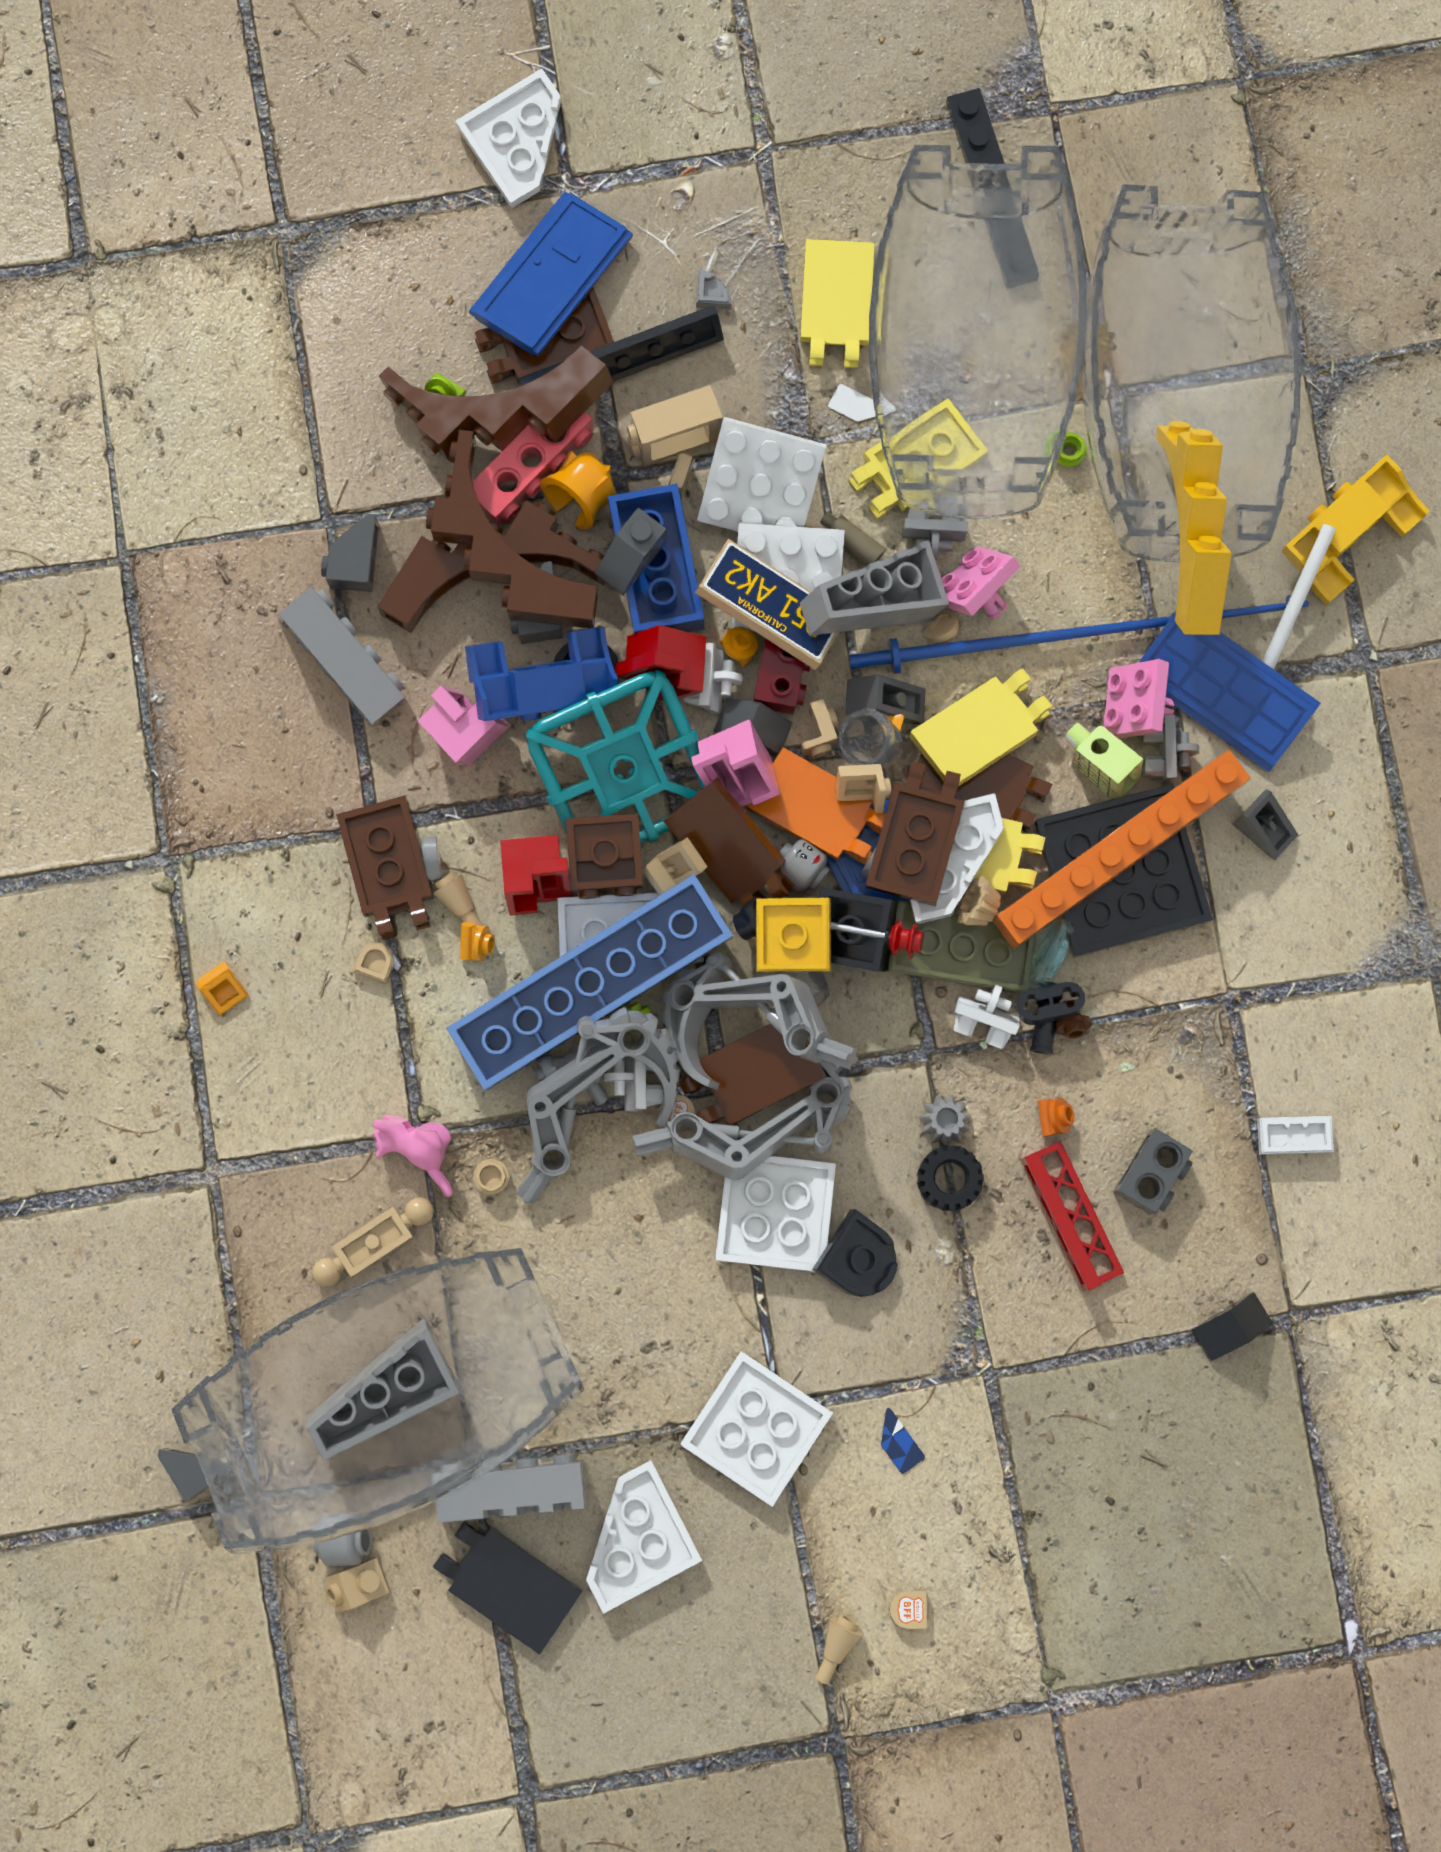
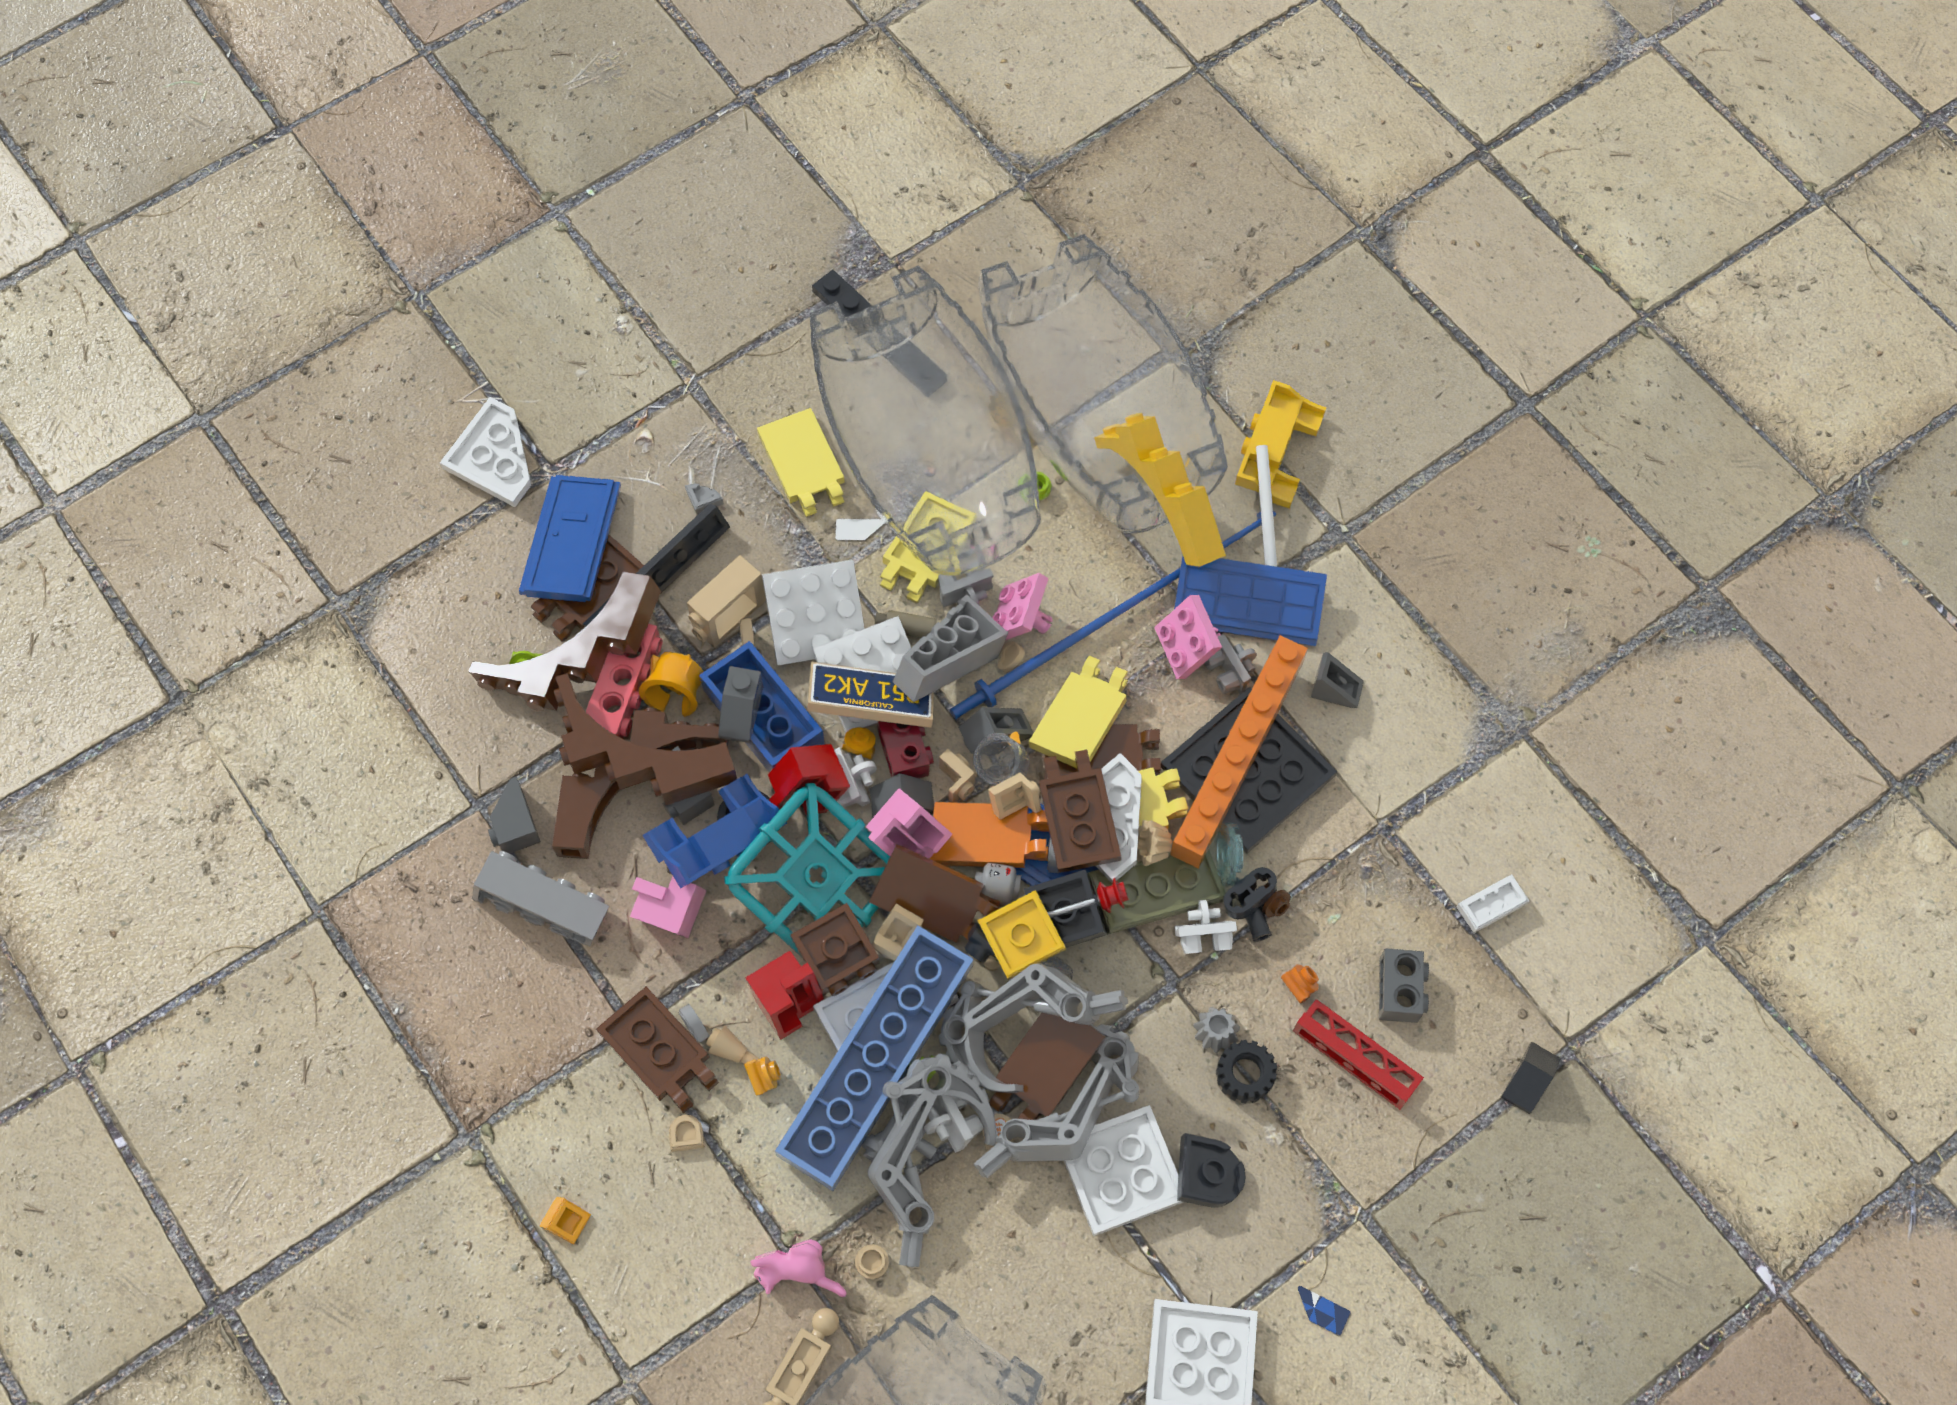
camera: 25 degrees left, 15 degrees down
(1105, 760) = (1190, 692): yellowish green torso -> none

